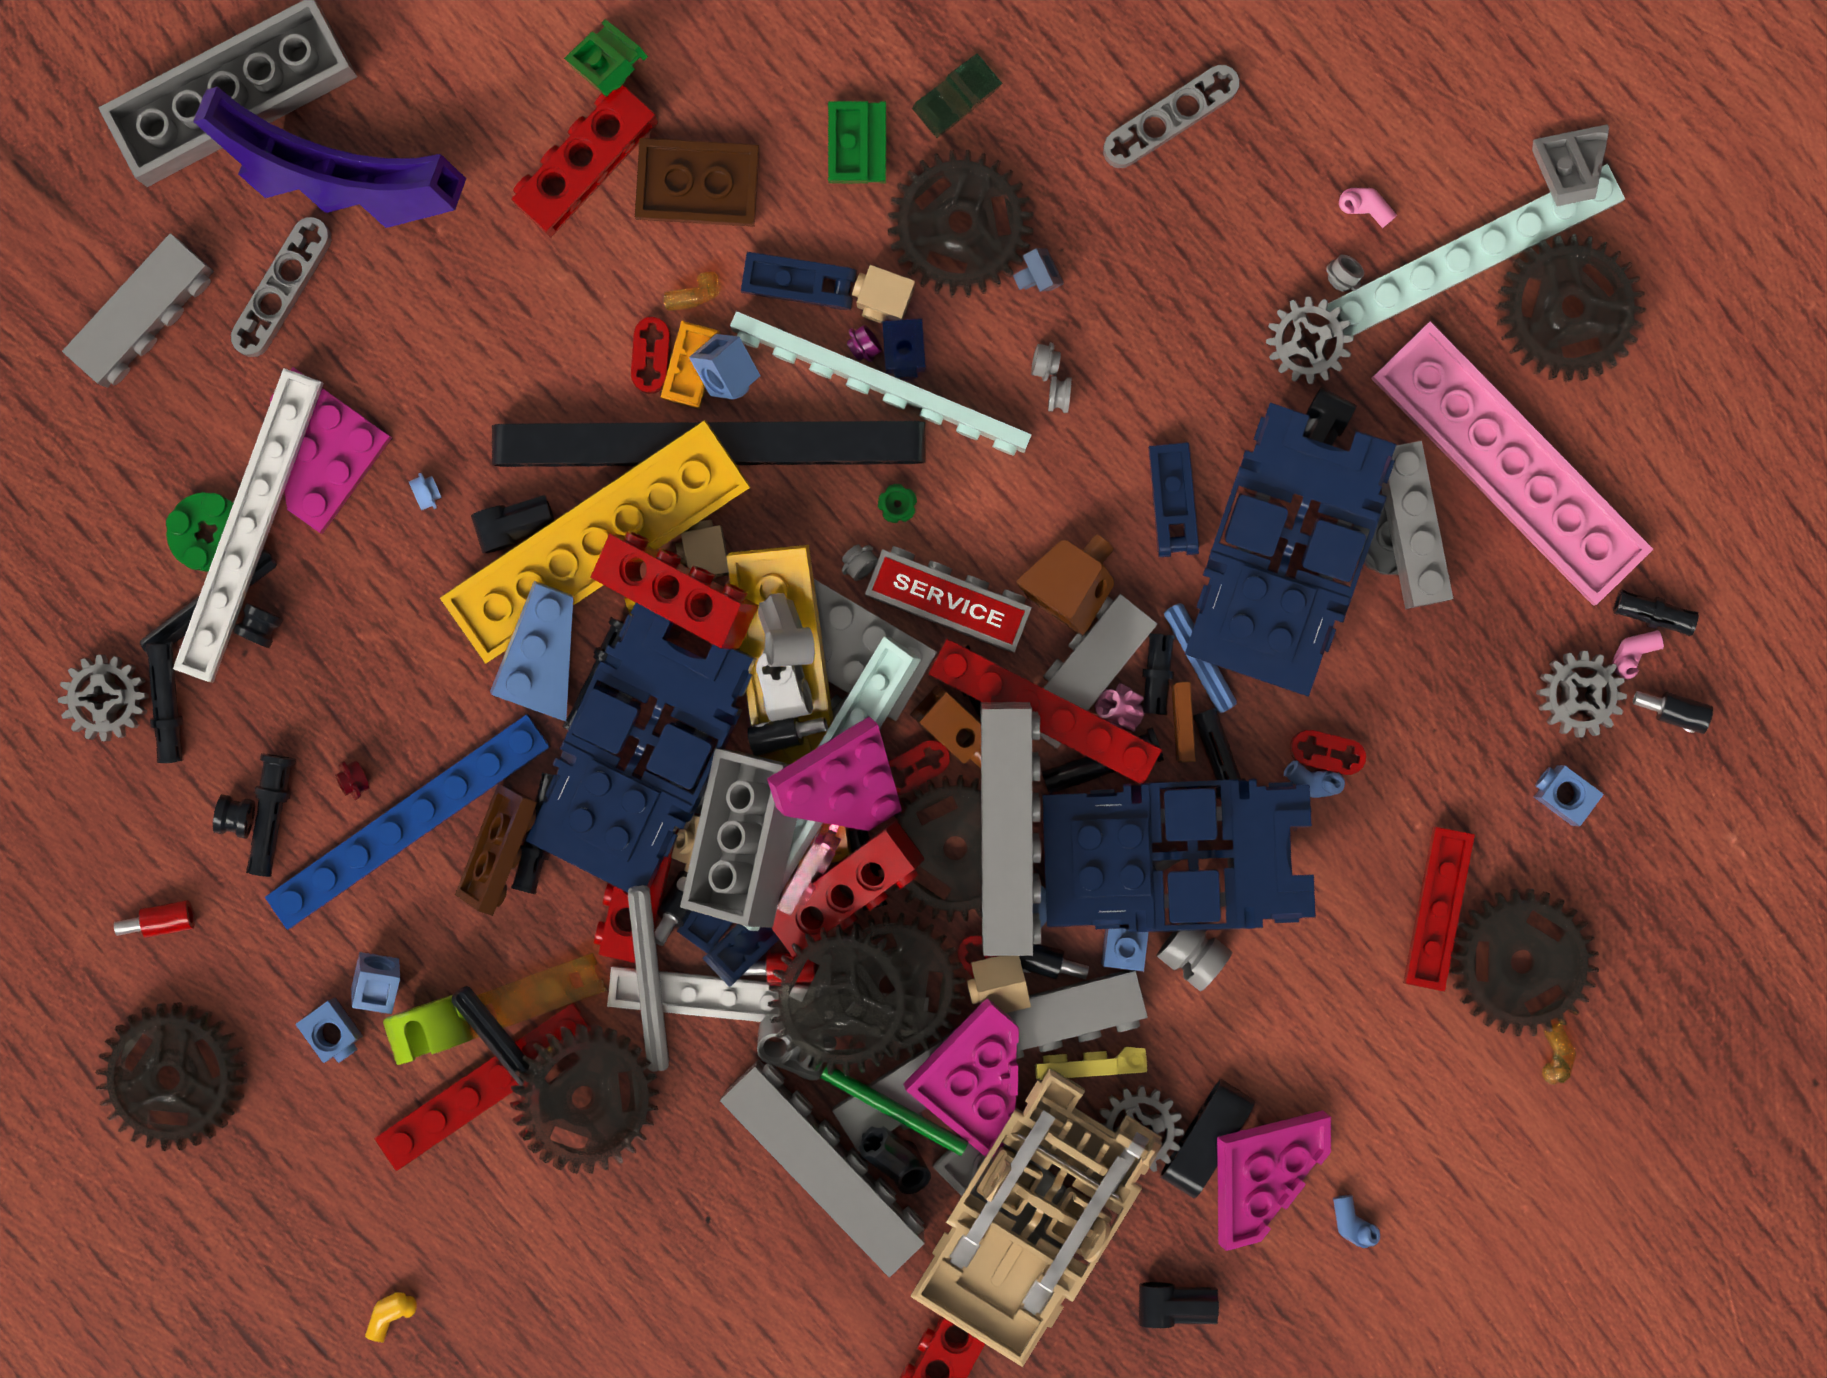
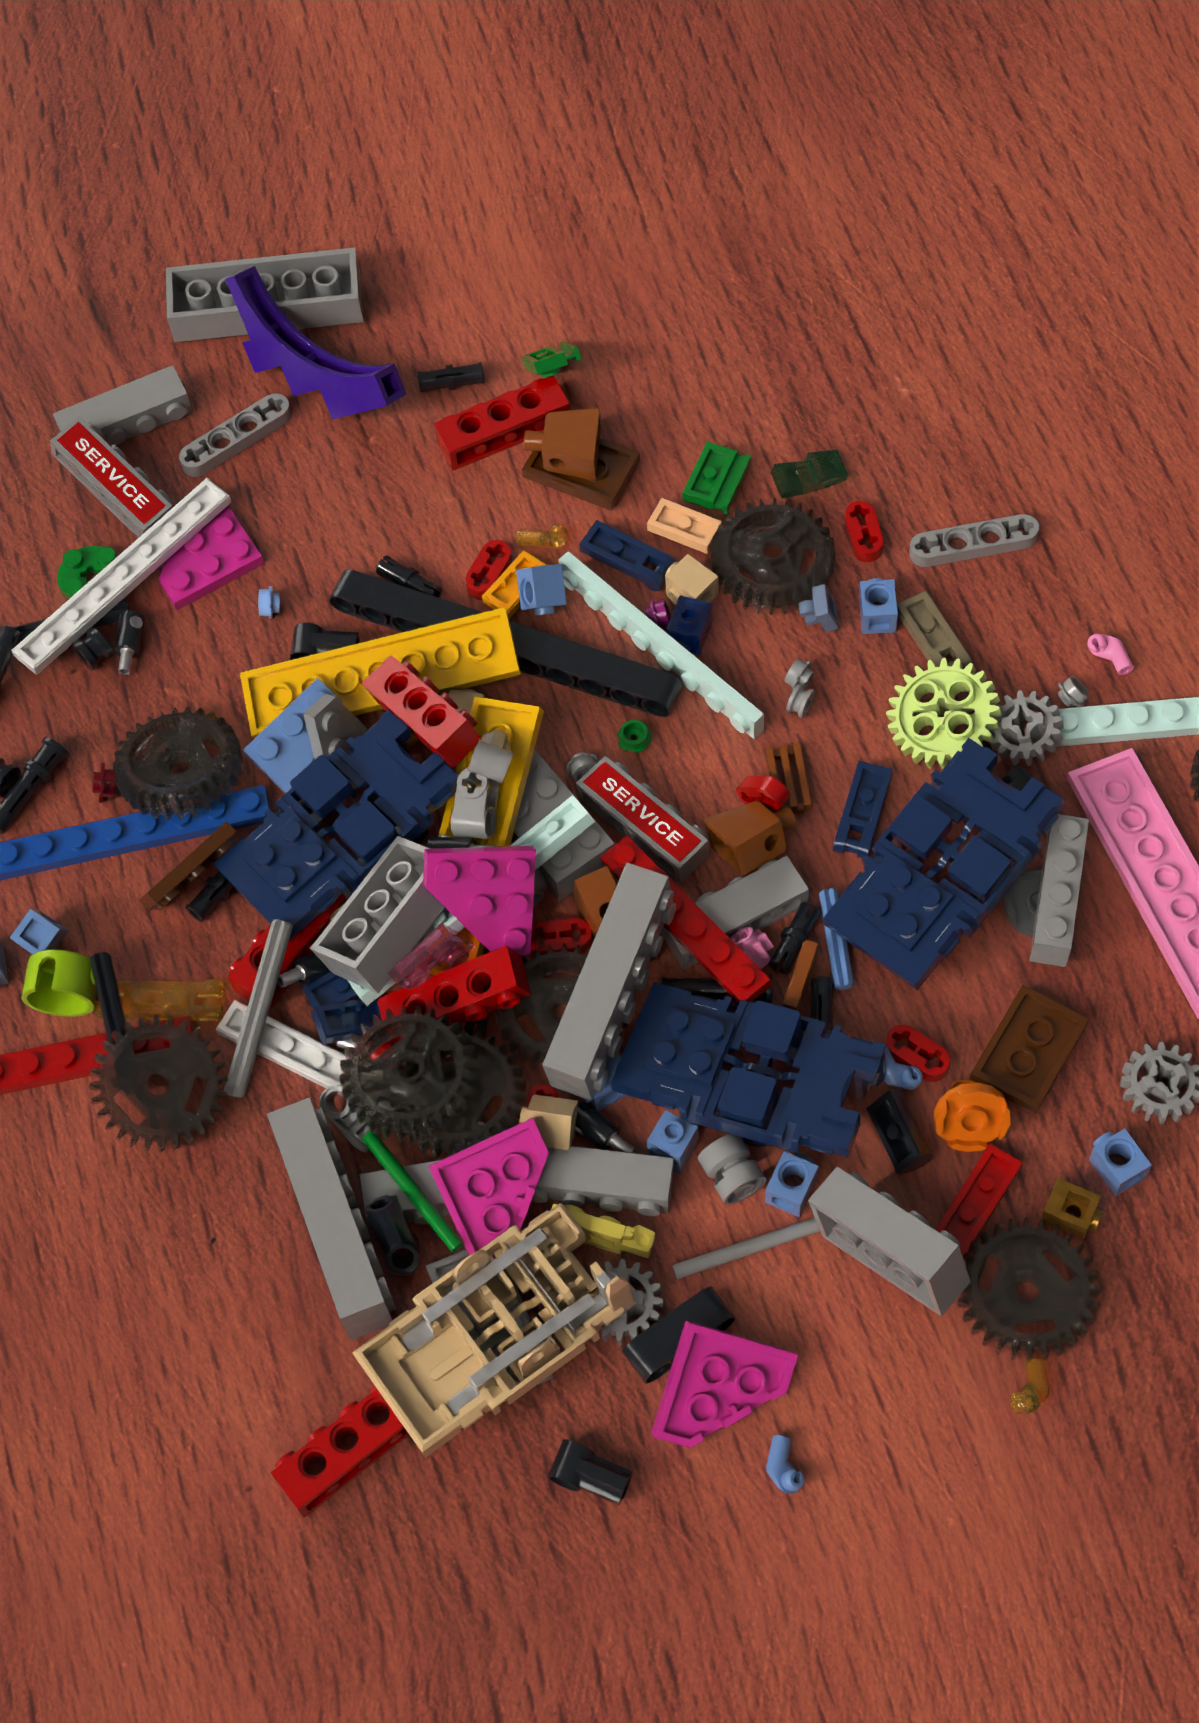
camera: 30 degrees right, 25 degrees down
(175, 411) = (110, 476): none -> brick
(291, 596) = (129, 639): none -> black piece
(415, 706) = (150, 754): none -> clear smoke gear
(496, 118) = (450, 377): none -> black pin
(568, 403) = (406, 577): none -> black pin
(577, 635) = (331, 725): none -> light grey wing
(677, 169) = (568, 442): none -> dark orange torso
(846, 219) = (683, 525): none -> light nougat plate
(1038, 155) = (870, 530): none -> red beam
(1063, 460) = (783, 754): none -> dark orange tile
(1065, 527) = (764, 790): none -> red beam
(1098, 261) = (878, 617): none -> medium blue brick
(1171, 259) = (931, 630): none -> dark tan plate
(1230, 389) = (945, 684): none -> yellowish green gear
(1236, 1022) = (745, 1248): none -> light grey bar
(1259, 960) = (792, 1198): none -> medium blue brick
(1342, 847) = (899, 1132): none -> black brick
(1382, 981) = (890, 1240): none -> light grey brick
(1408, 810) = (971, 1116): none -> orange tile
(1438, 706) = (1029, 1048): none -> reddish brown plate
(1521, 869) = (1068, 1197): none -> pearl gold brick

